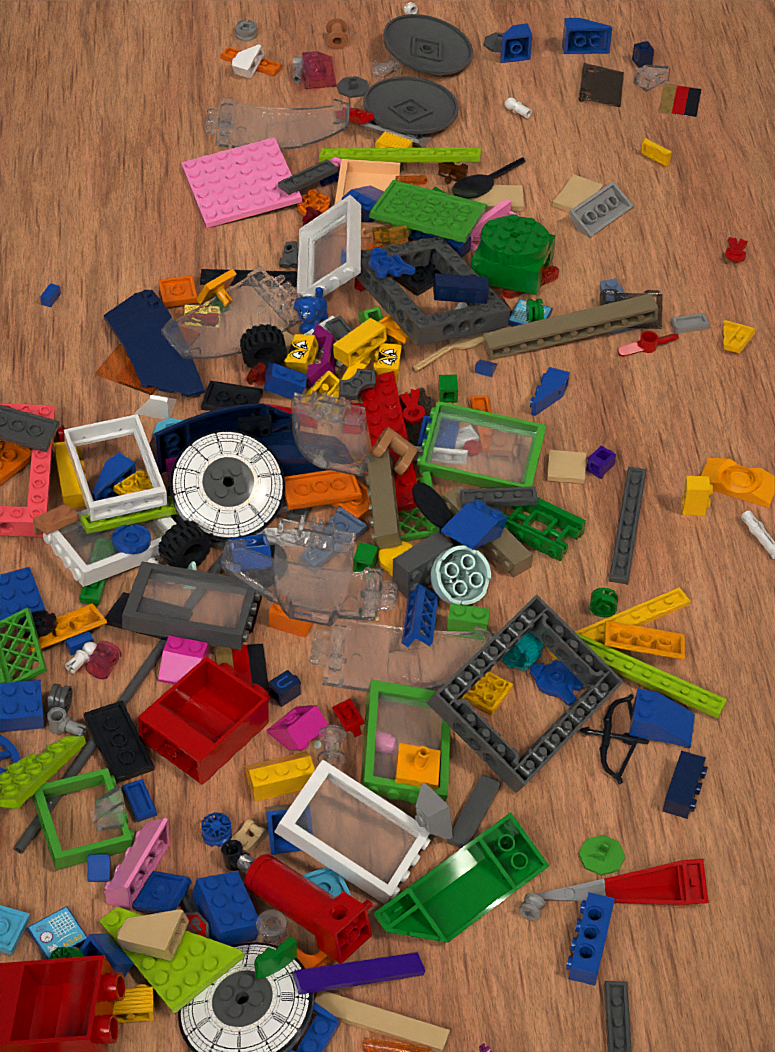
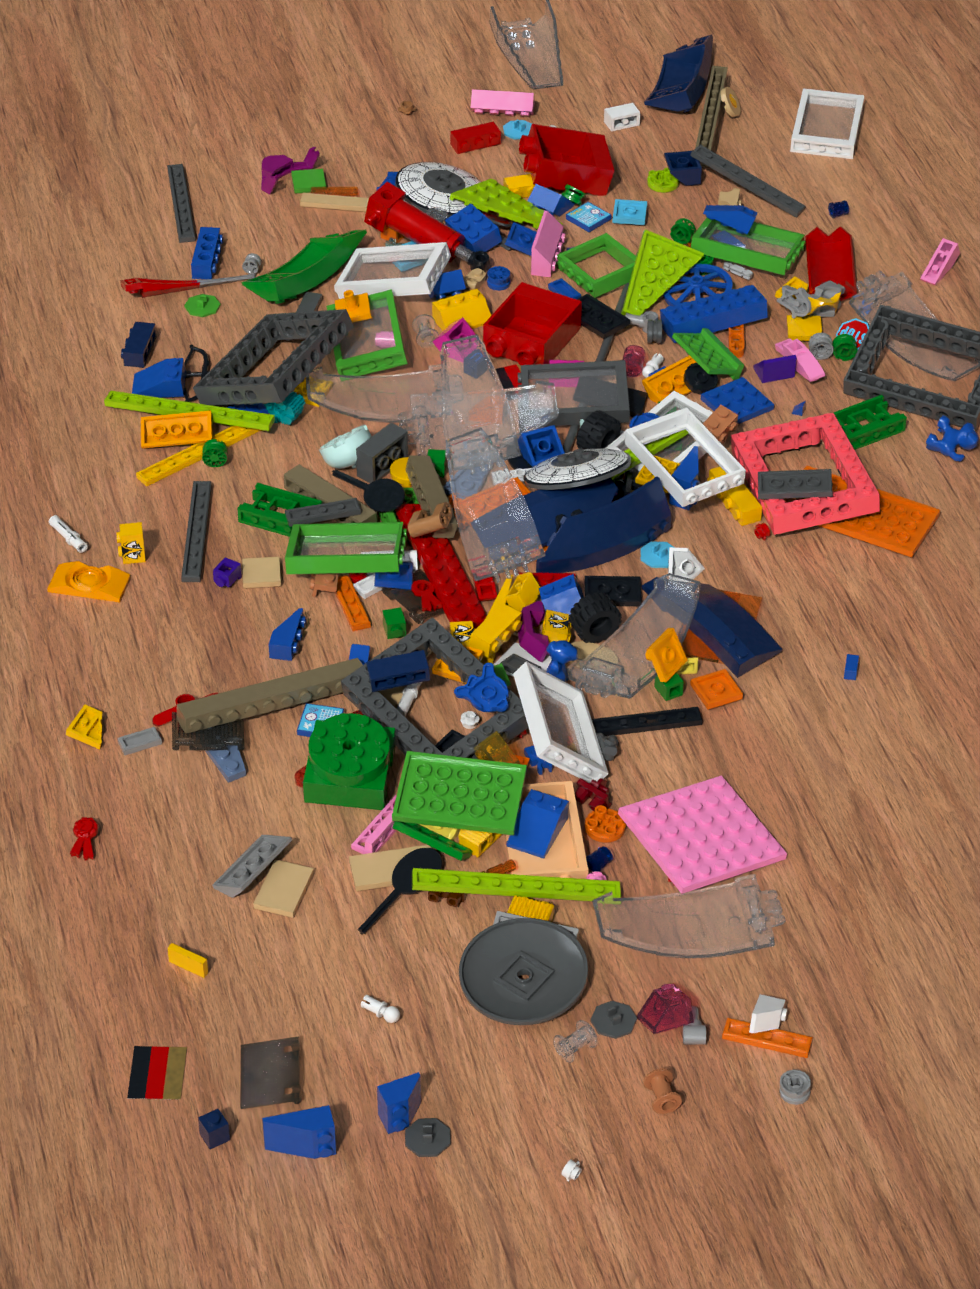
camera: 170 degrees right, 5 degrees down
(109, 810) = (576, 249): clear slope -> none
(154, 934) = (518, 197): tan slope -> none
(274, 960) = (426, 187): green slope -> none
(307, 177) = (619, 828): dark grey tile -> none
(349, 717) = (418, 350): red plate -> none
(358, 973) = (358, 213): dark purple tile -> none
(360, 116) = (593, 945): red plate -> none
(360, 381) = (489, 595): dark grey tile -> none
(416, 612) = (380, 407): blue fence -> none
(427, 44) = (524, 1055): dark grey dish -> none
(433, 813) = (333, 283): light grey slope -> none
(465, 618) = (331, 425): bright green brick -> none
(476, 524) = (339, 464): blue slope -> none
(534, 310) = (314, 702): green wheel -> none
(651, 76) = (200, 1092): clear slope -> none

